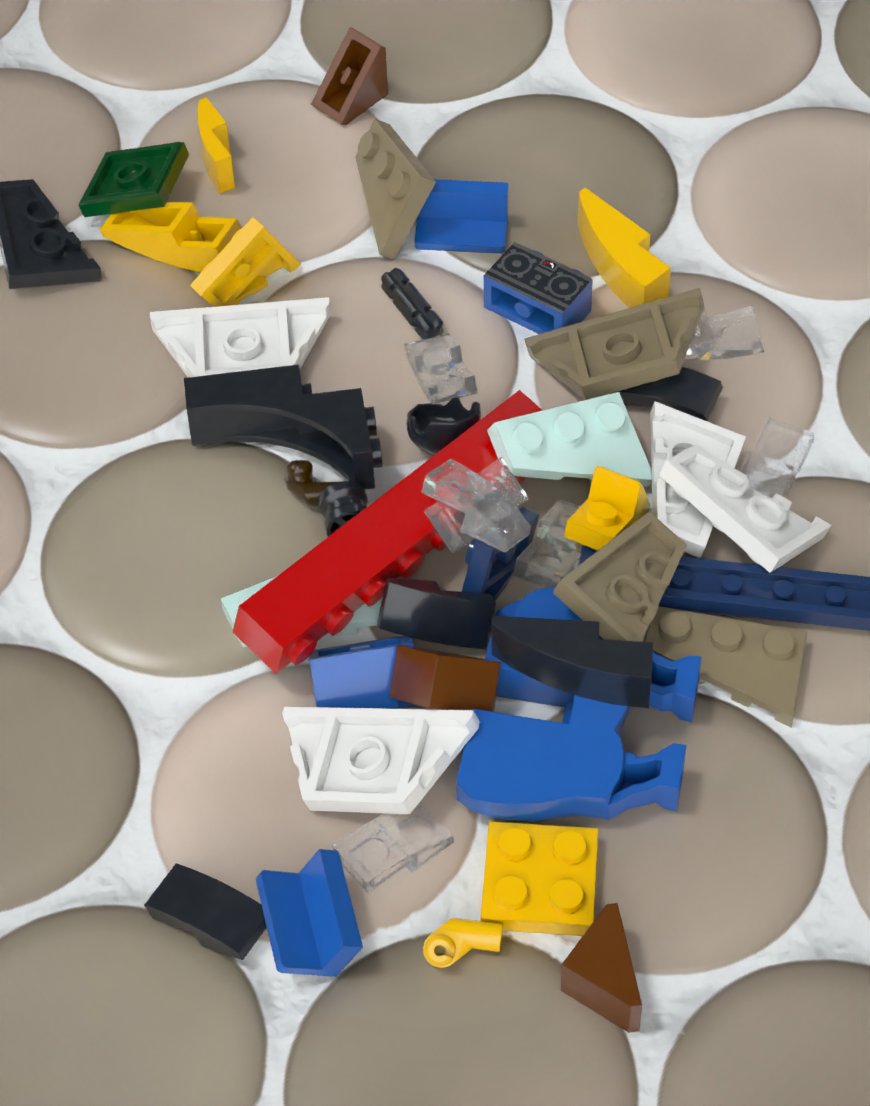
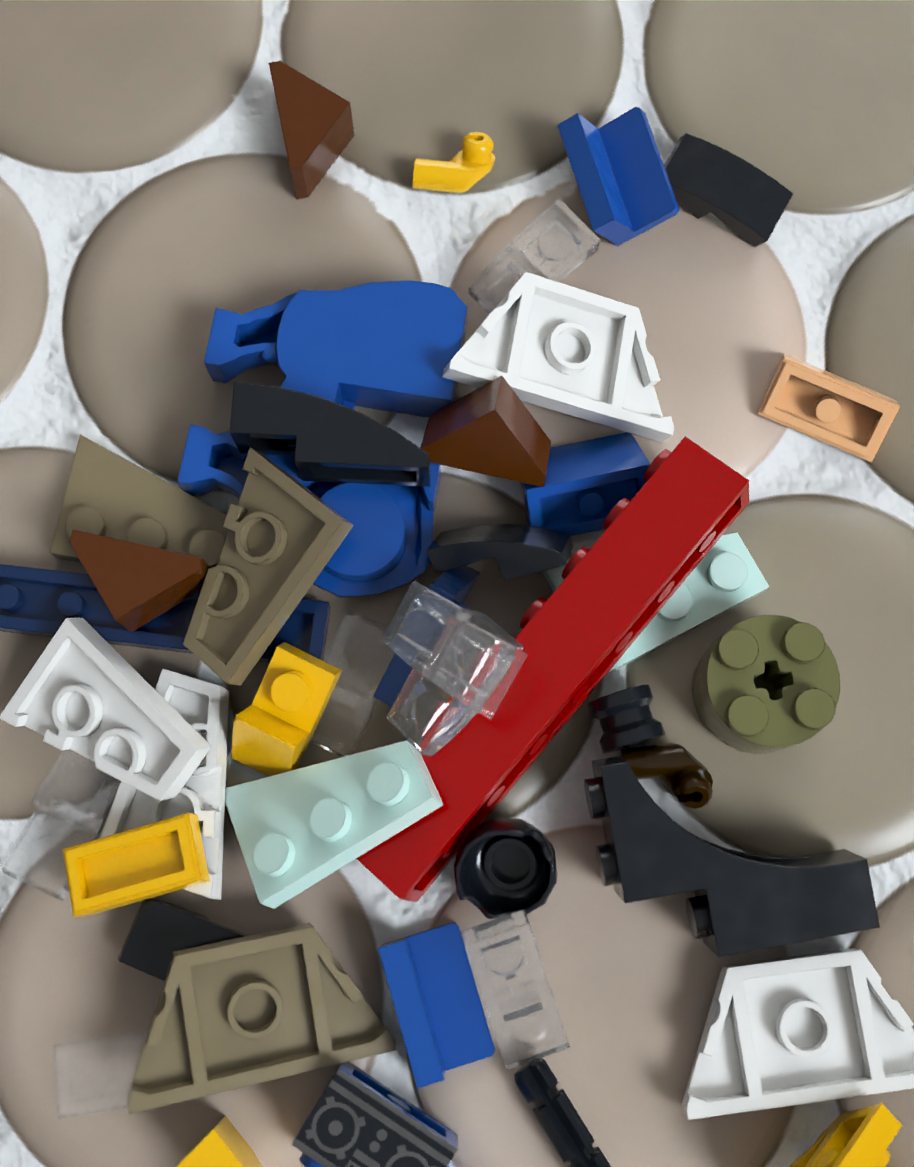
camera: 175 degrees right, 25 degrees up
(143, 738) = (828, 407): none -> light nougat slope
(237, 525) = (790, 657): none -> olive brick
(499, 361) = (436, 1002): none -> blue panel
(540, 878) = (373, 233): yellow plate -> none
(711, 421) = (135, 865): none -> yellow tile
(725, 585) = (137, 578): none -> reddish brown slope

